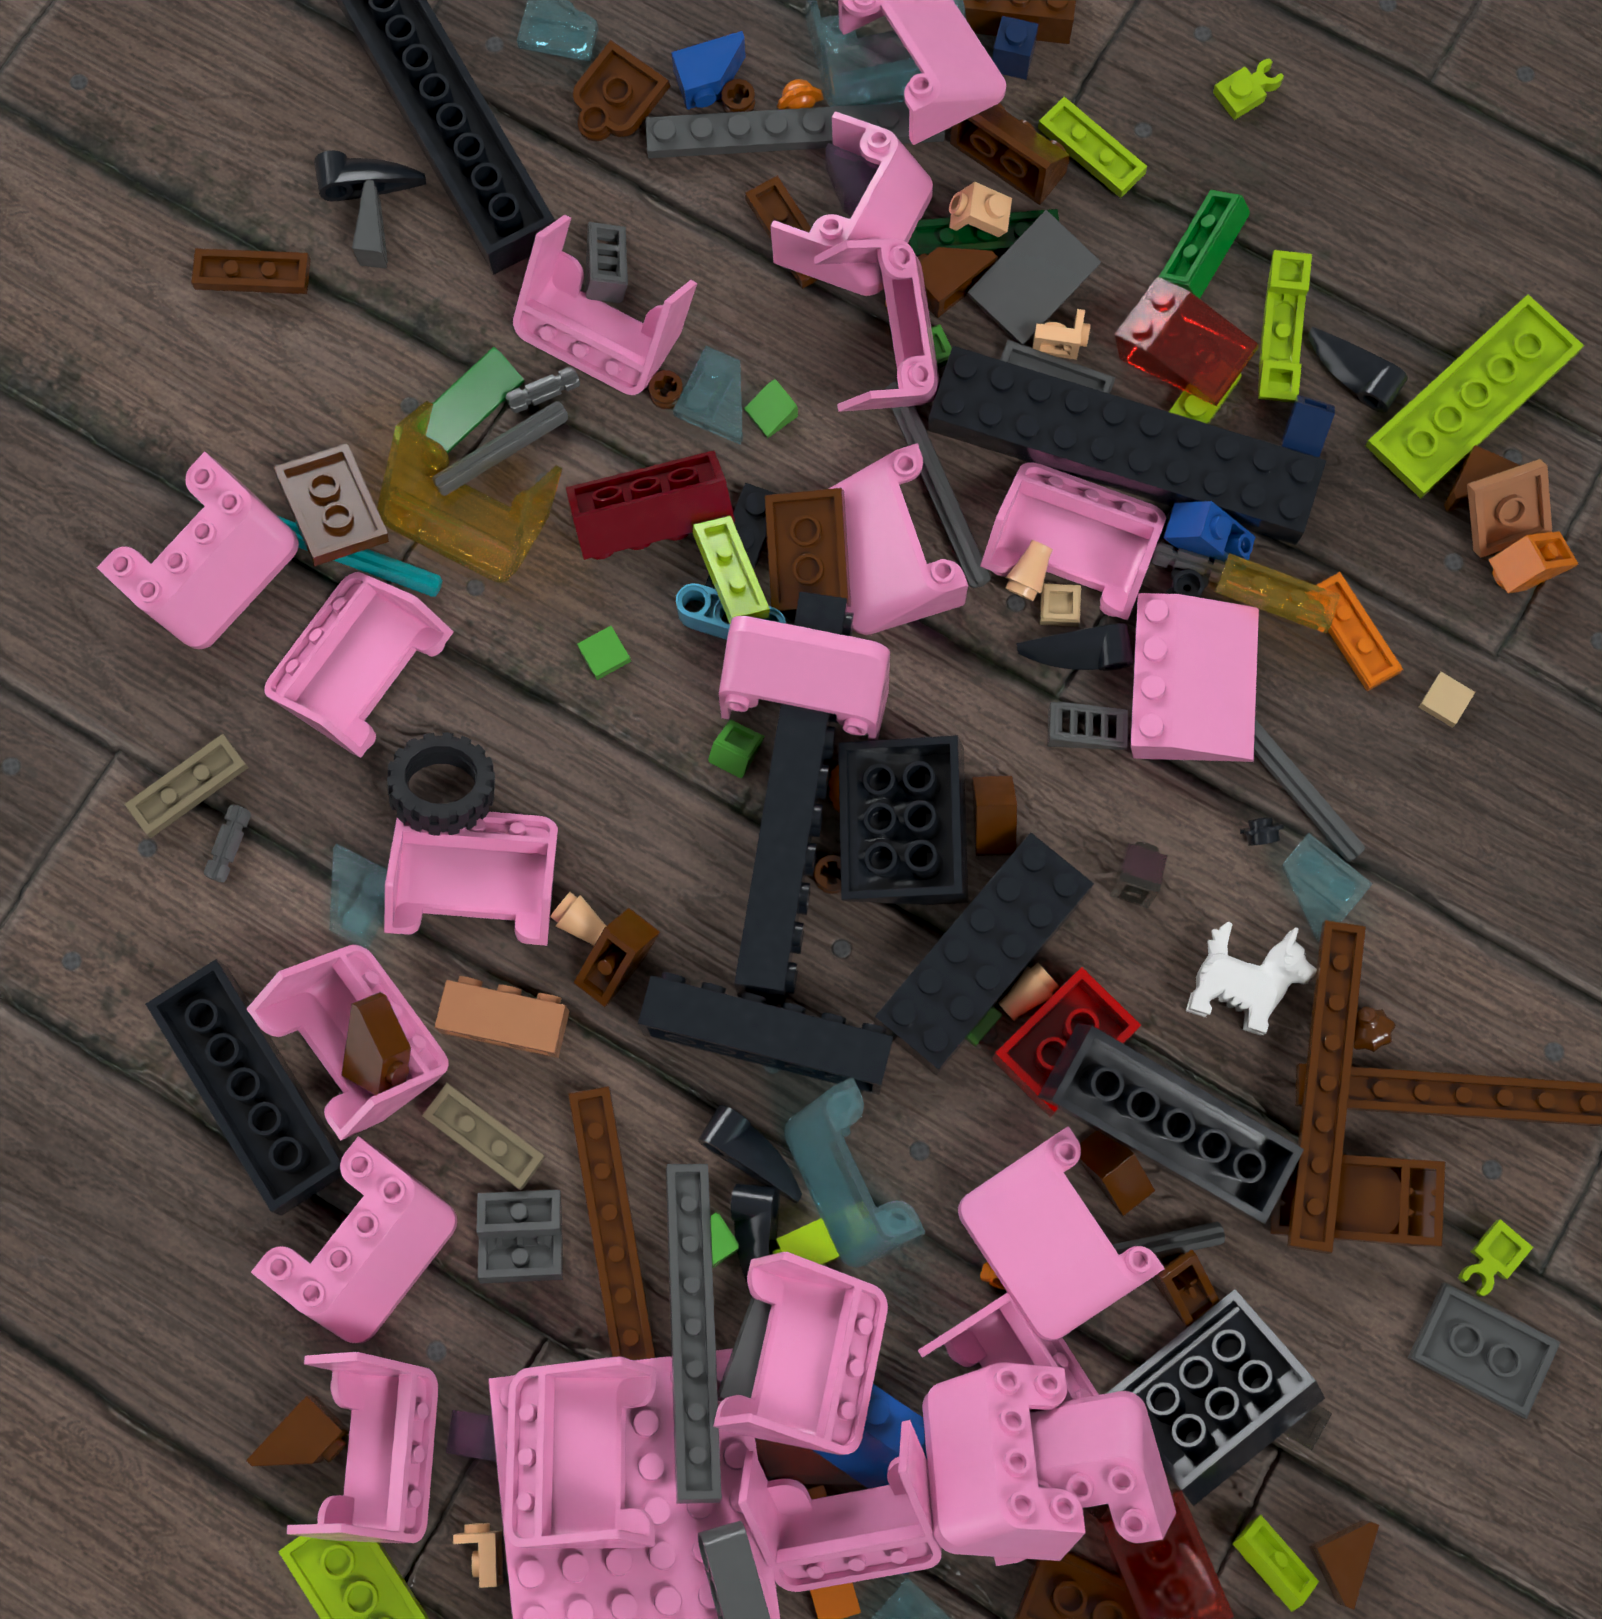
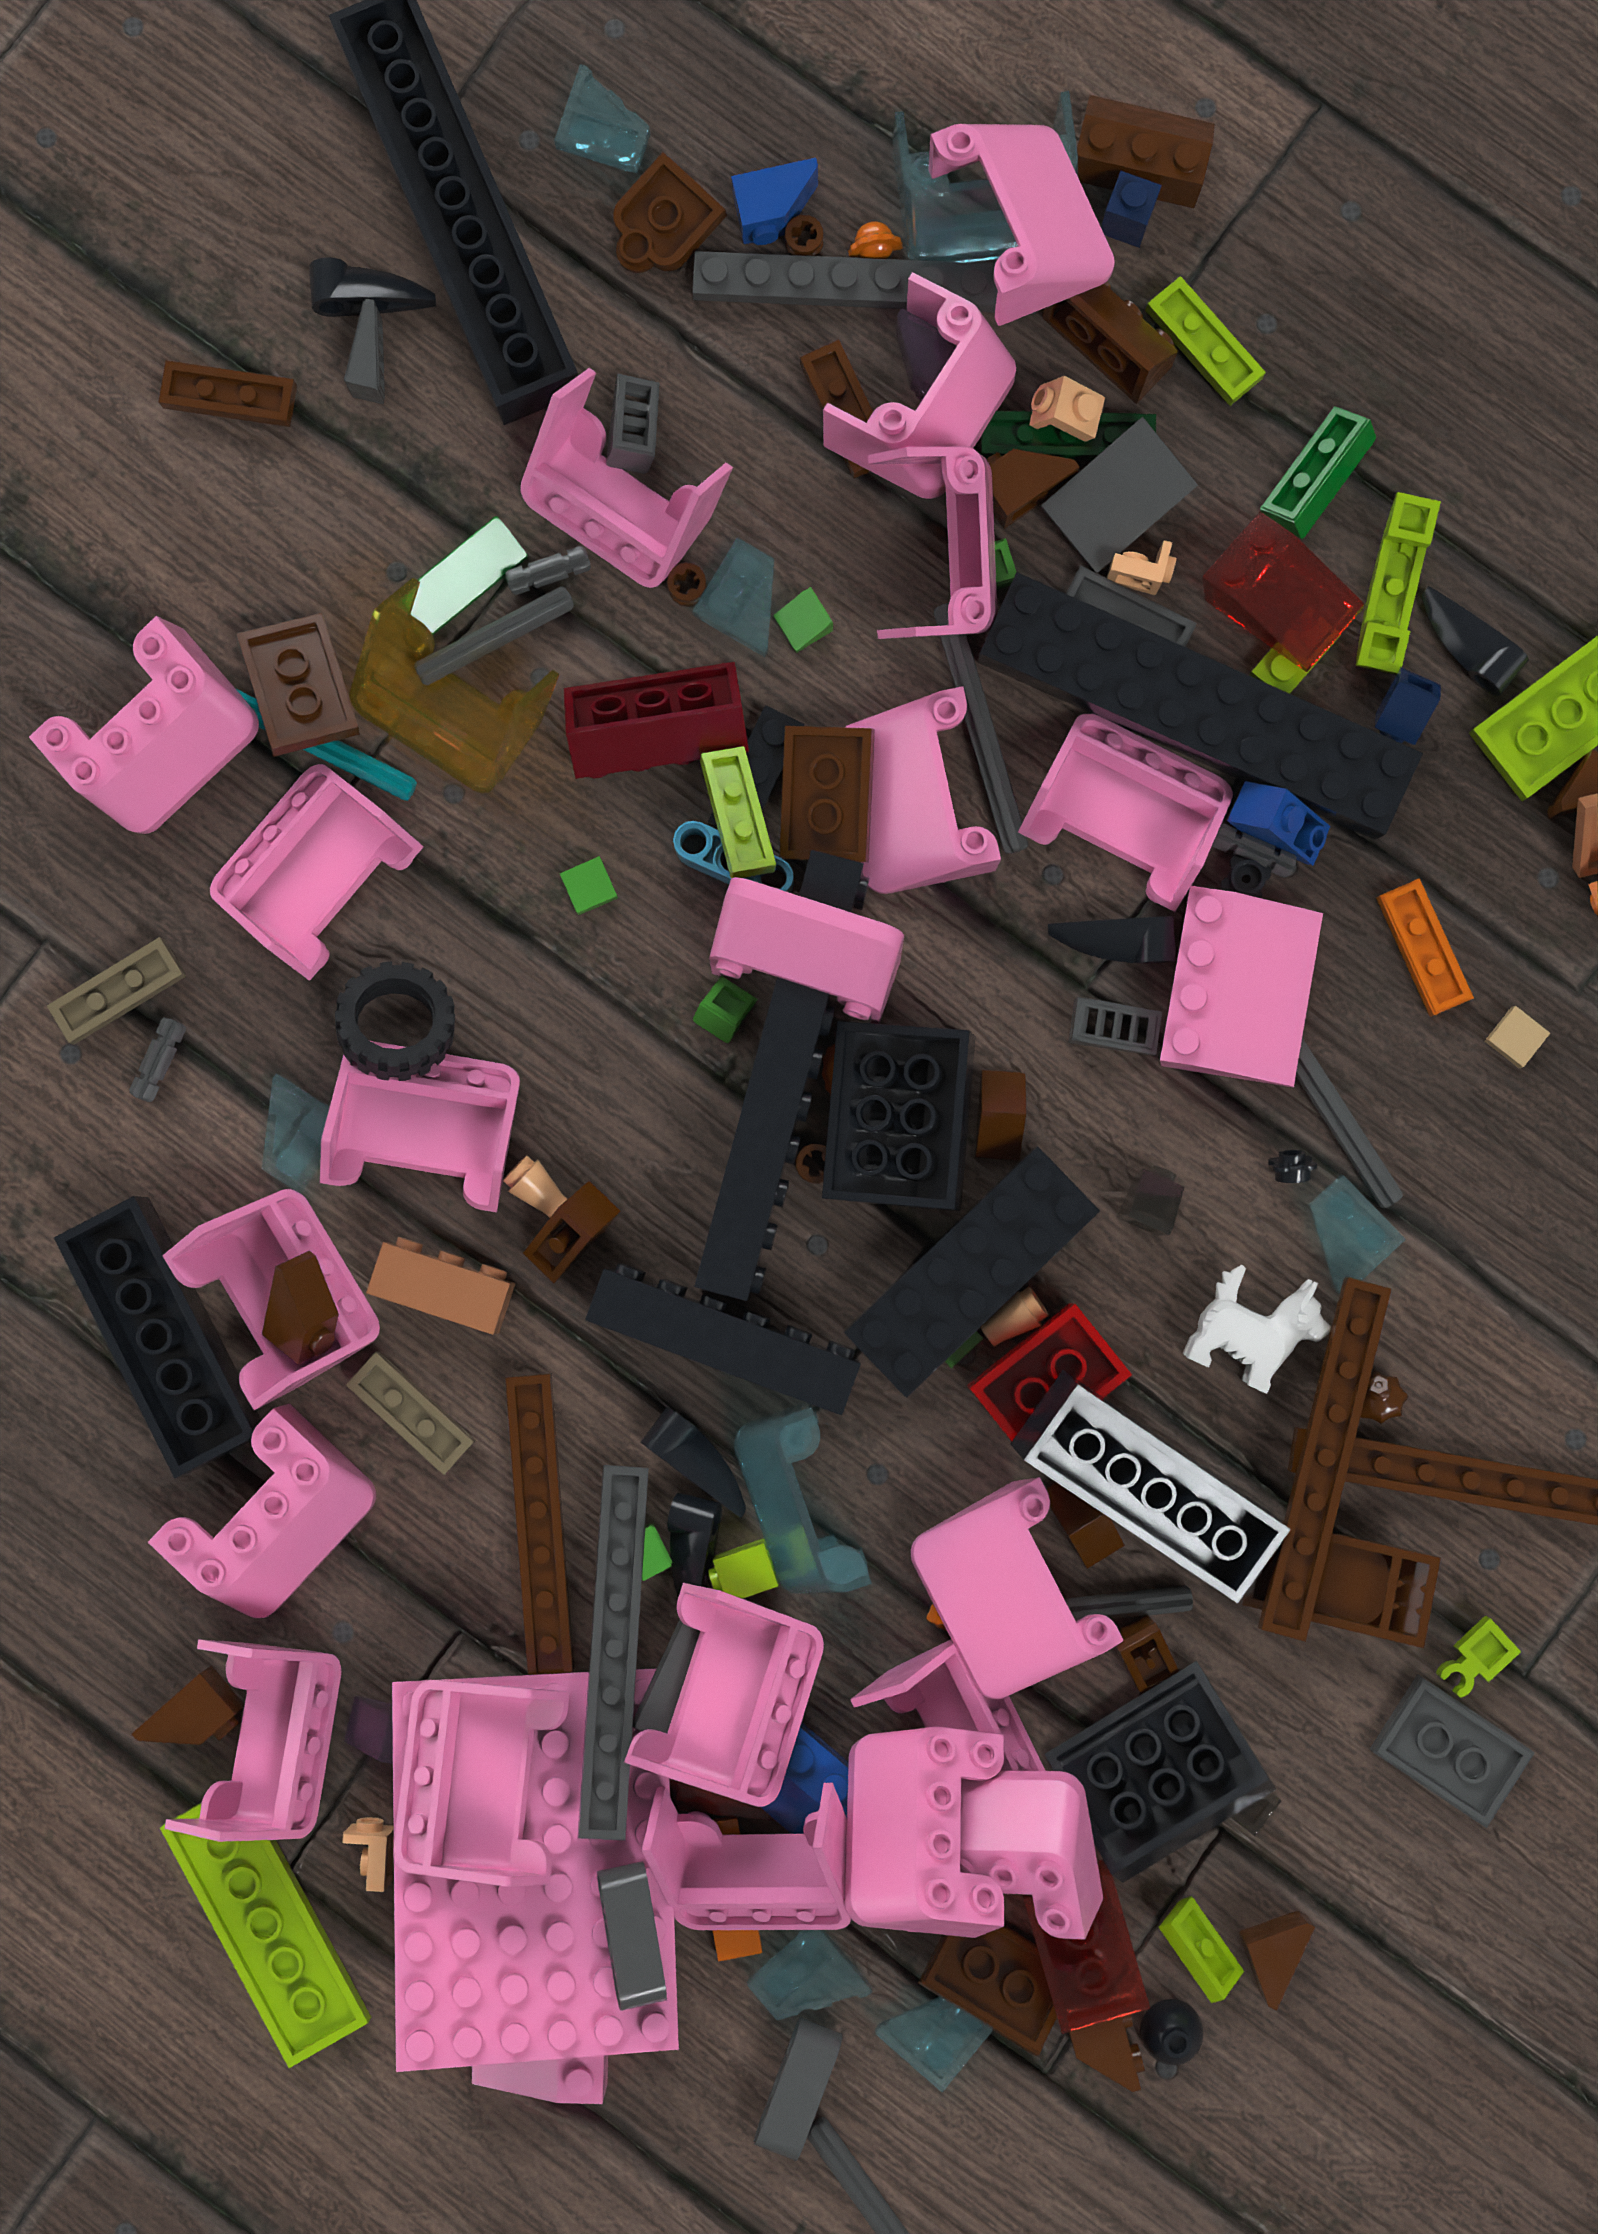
camera: 10 degrees right, 10 degrees up
(520, 1236) = (440, 1522): dark grey slope -> none
(1029, 572) = (1072, 844): light nougat cone -> none
(1060, 605) = (1102, 883): tan tile -> none
(1245, 90) = (1390, 287): lime plate -> none
(1277, 593) = (1346, 899): clear yellow plate -> none

